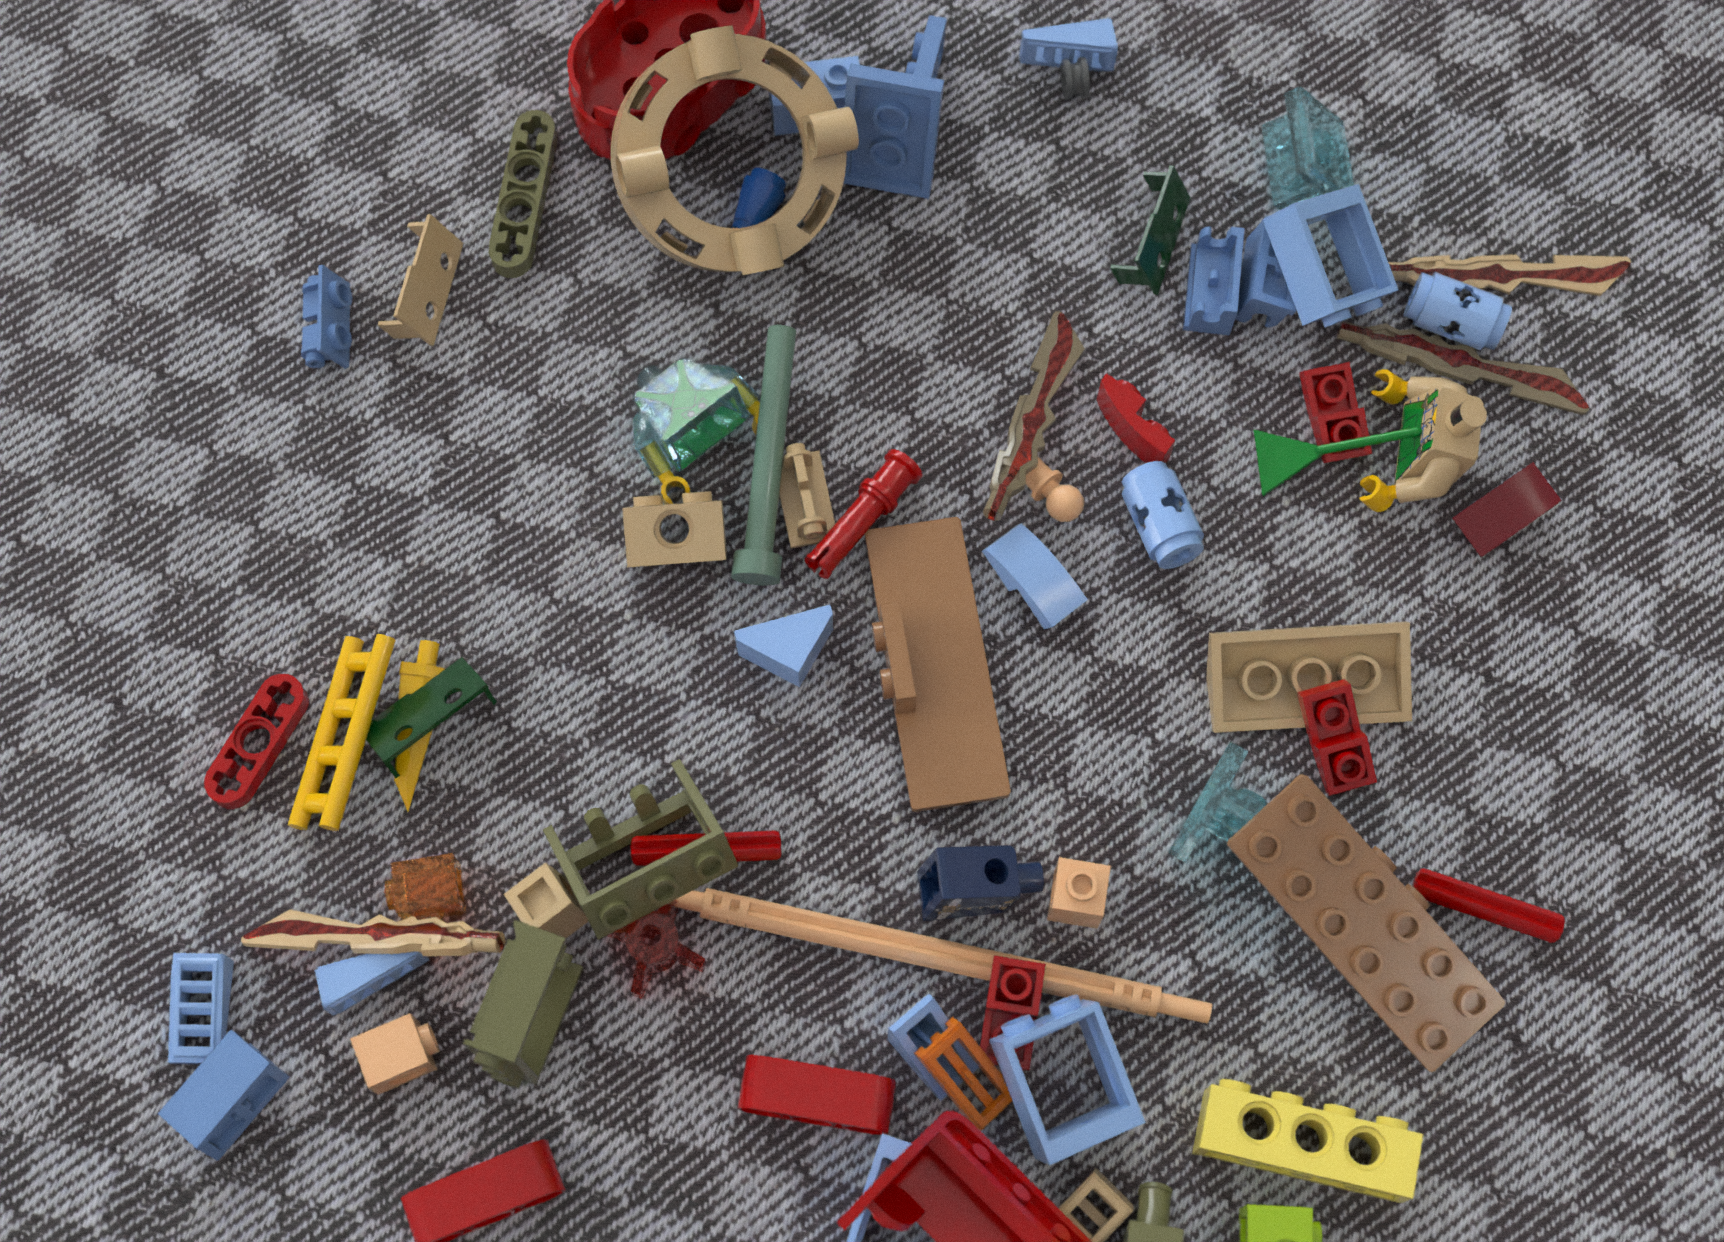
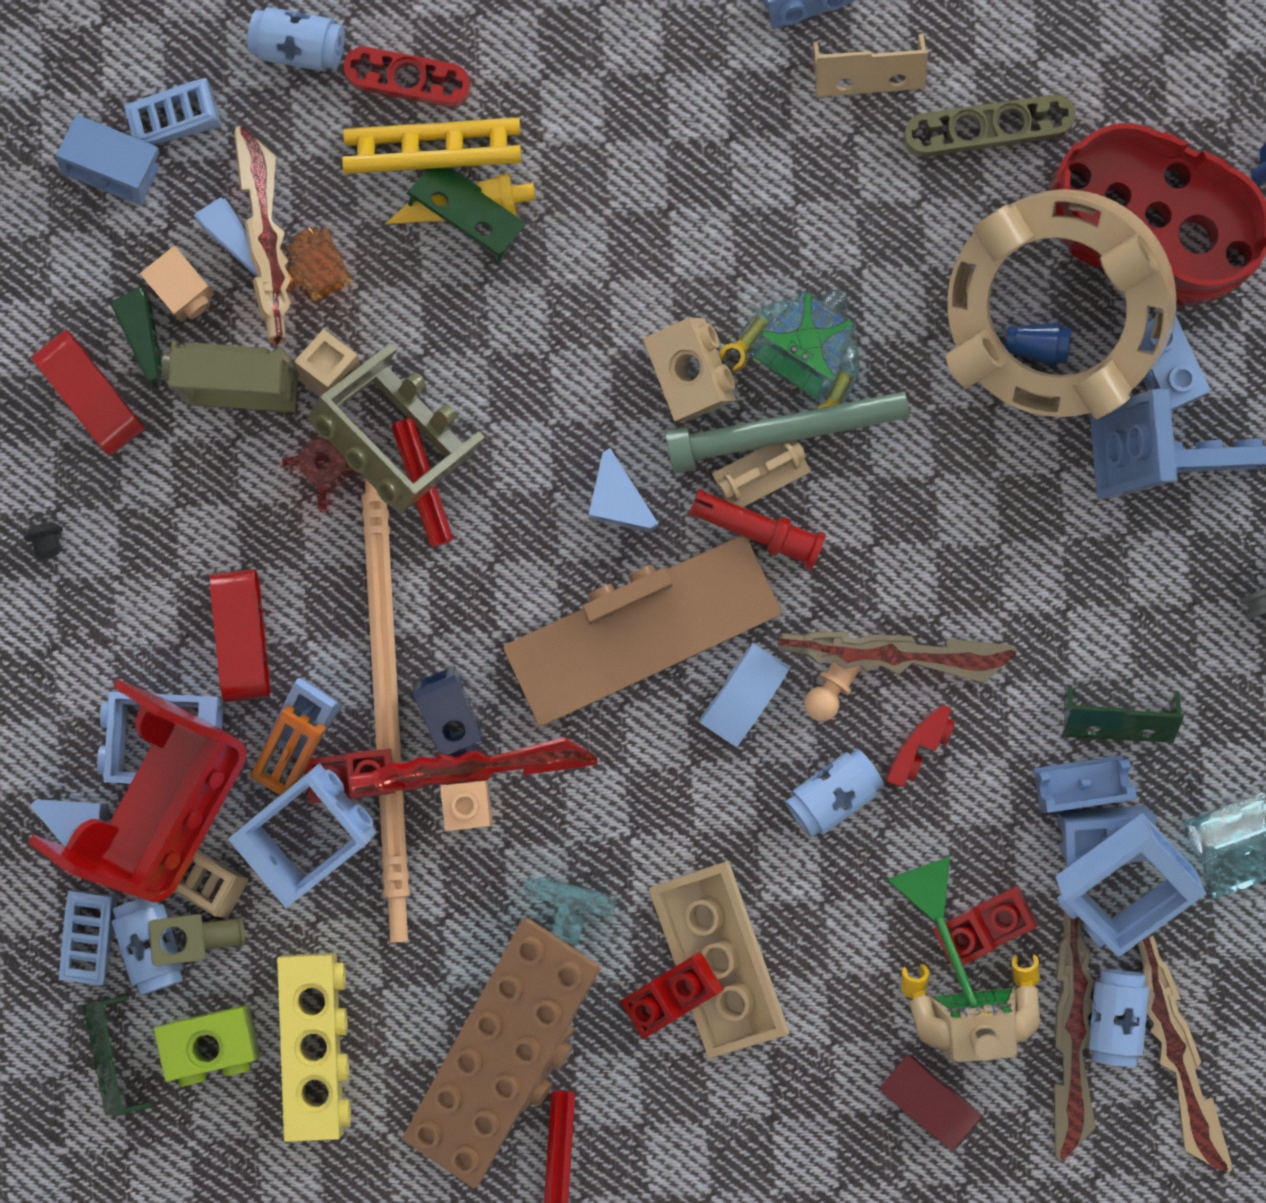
camera: 75 degrees right, 15 degrees up
(154, 866) = (278, 37): none -> light blue piece
(421, 1113) = (138, 324): none -> dark green slope
(1040, 872) = (473, 767): none -> red sword

